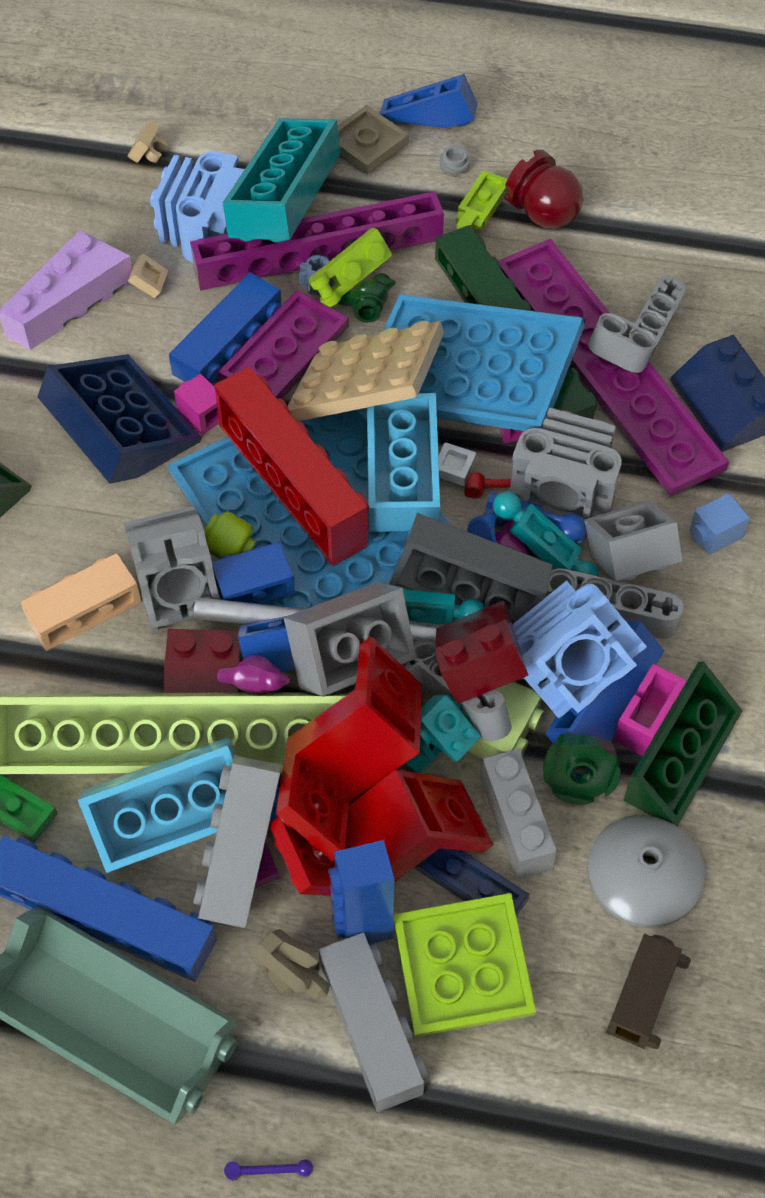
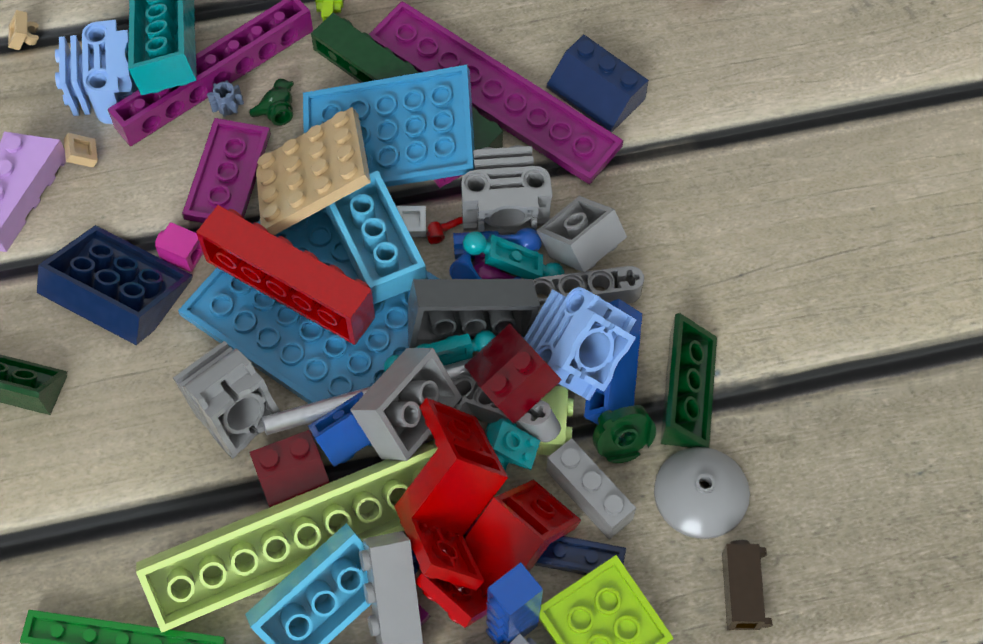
camera: 25 degrees left, 5 degrees up
(81, 601) = (160, 455): light nougat brick -> none
(225, 330) = (171, 175): blue brick -> none
(228, 535) = (264, 353): lime head -> none
(254, 576) = (299, 379): blue brick -> none
(254, 676) = (343, 464): magenta animal -> none
(350, 267) = (251, 83): lime plate -> none
(631, 343) = (511, 67): light grey beam -> none
(652, 703) = (653, 366): dark pink piece -> none
(719, 523) = (637, 194): medium blue brick -> none

